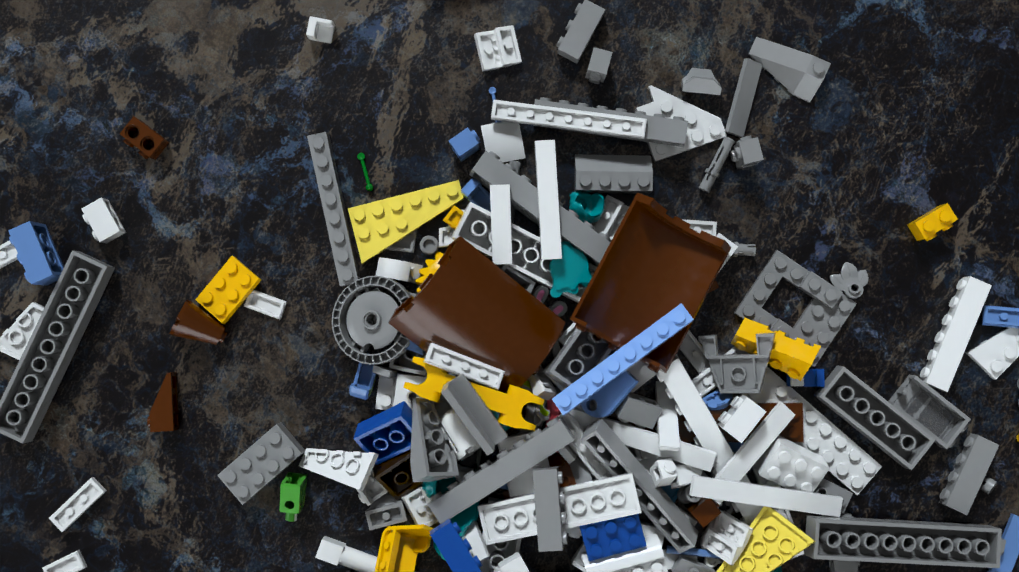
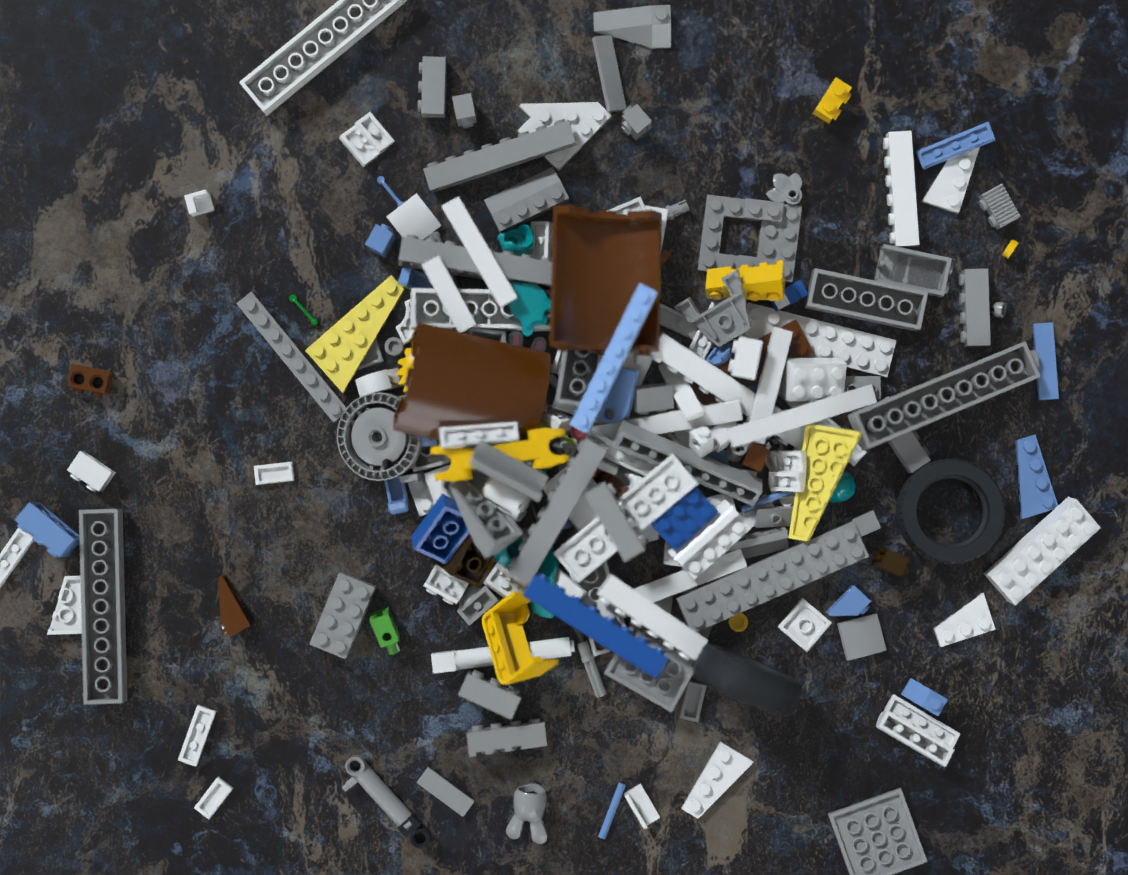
camera: 25 degrees left, 0 degrees up
(197, 325) = (224, 521): reddish brown cone -> none
(228, 289) = (234, 476): yellow plate -> none
(344, 467) = (415, 580): white wing -> none
(453, 217) = (403, 310): yellow tile -> none
(569, 119) = (462, 171): white tile -> none
(701, 81) = (563, 78): light grey slope -> none
(716, 164) = (615, 145): light grey pin -> none

